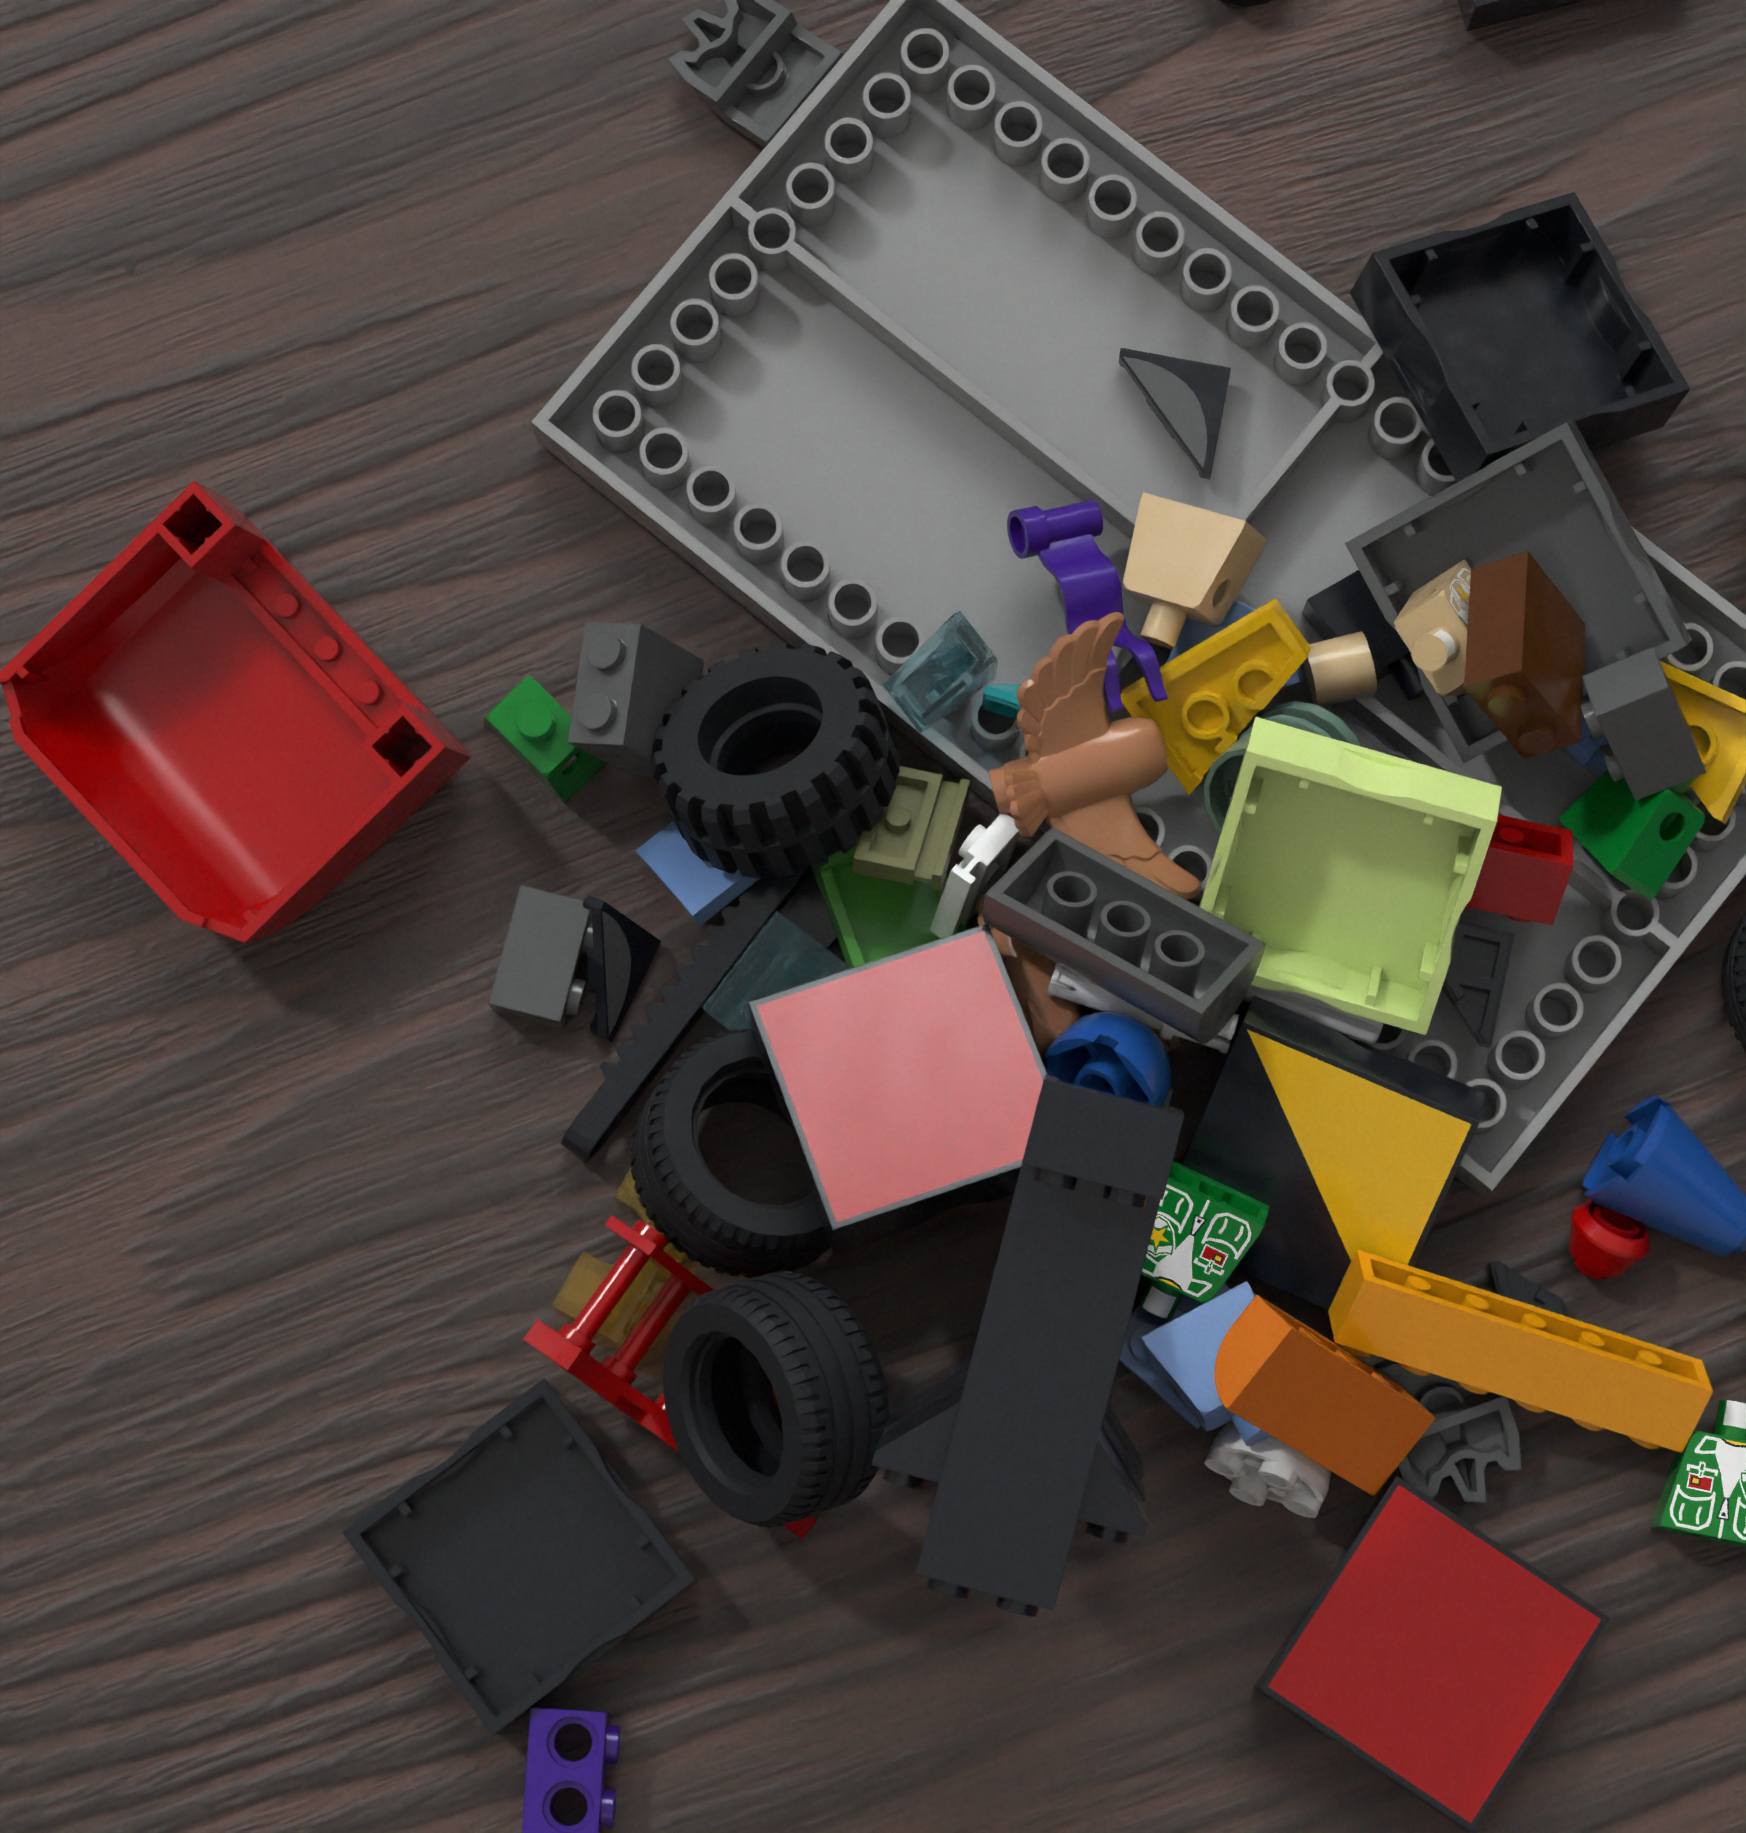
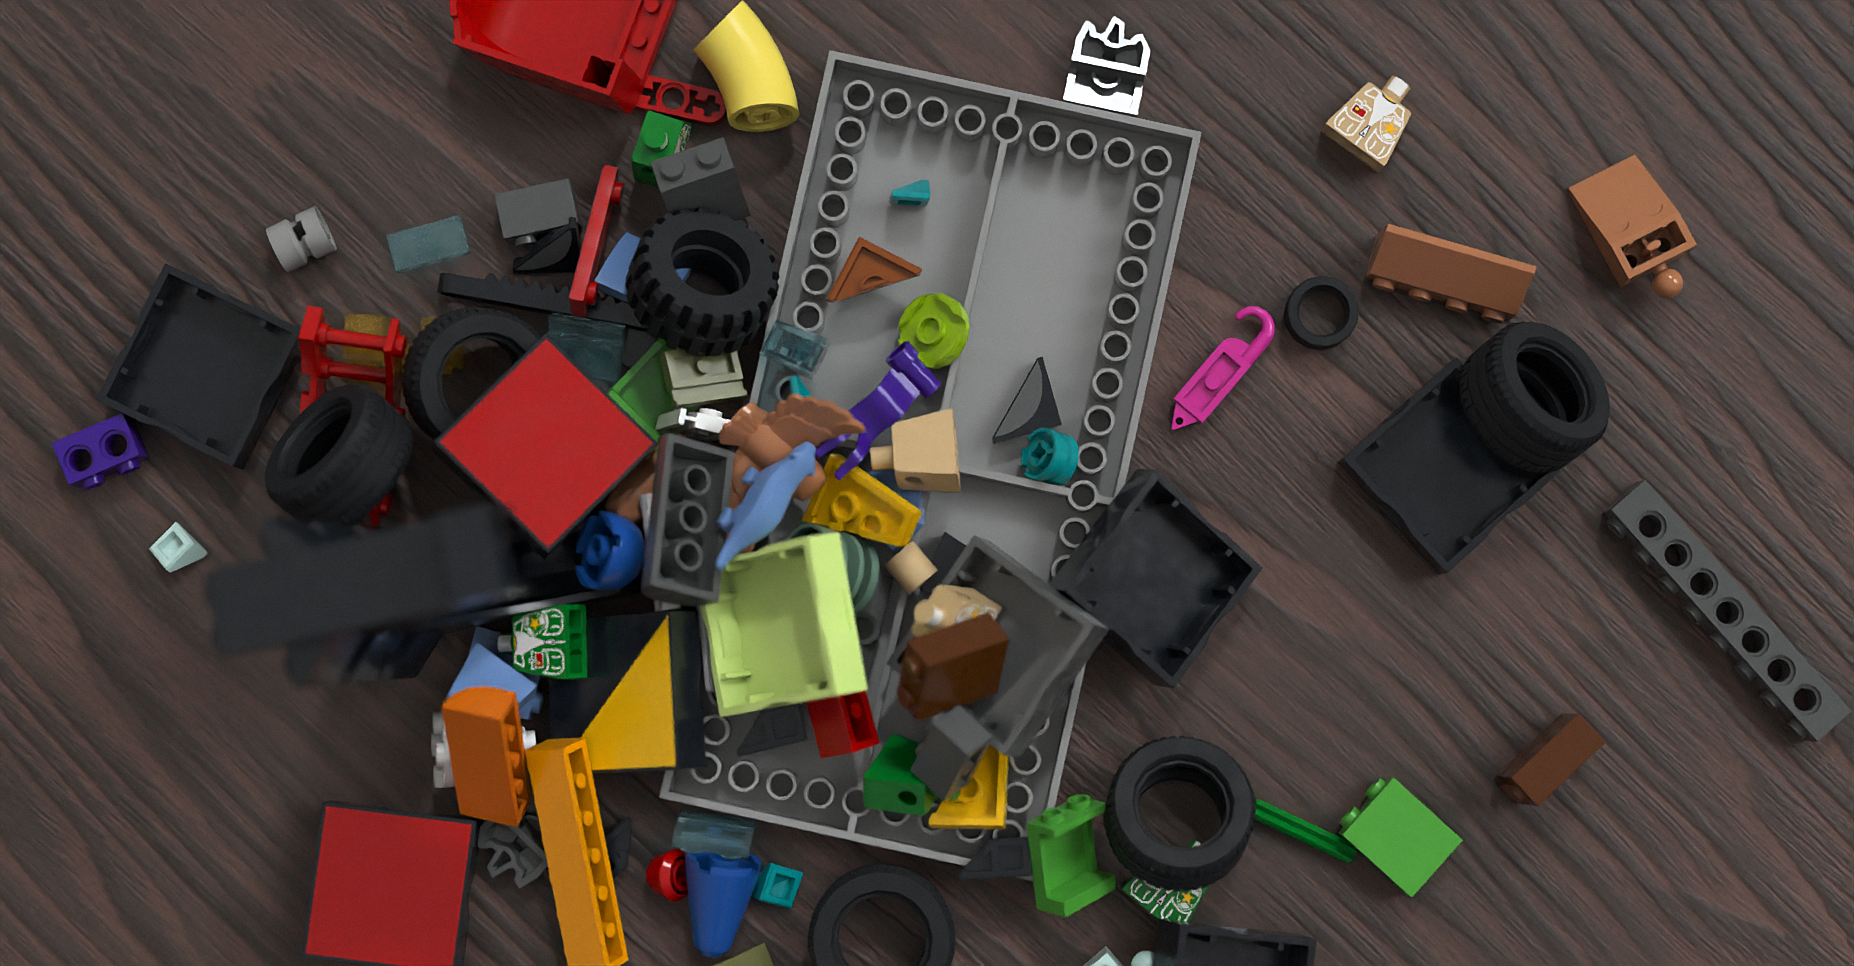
camera: 60 degrees right, 5 degrees up
(404, 1342) = (301, 238): none -> light grey wheel
(496, 555) = (749, 72): none -> light yellow brick
(505, 1143) = (428, 244): none -> clear light blue plate
(517, 664) = (703, 96): none -> red beam
(698, 934) = (584, 289): none -> red plate
(767, 1735) = (177, 548): none -> light aqua slope
(798, 408) = (911, 195): none -> teal slope
(877, 518) = (870, 269): none -> dark orange tile
(1005, 468) = (935, 328): none -> lime tile
(1151, 809) = (764, 501): none -> medium blue animal
(1263, 122) = (1221, 371): none -> dark pink plate
(1291, 405) = (1050, 456): none -> teal wheel
(1579, 1145) = (713, 834): none -> clear light blue plate
(1695, 1094) = (777, 885): none -> teal slope

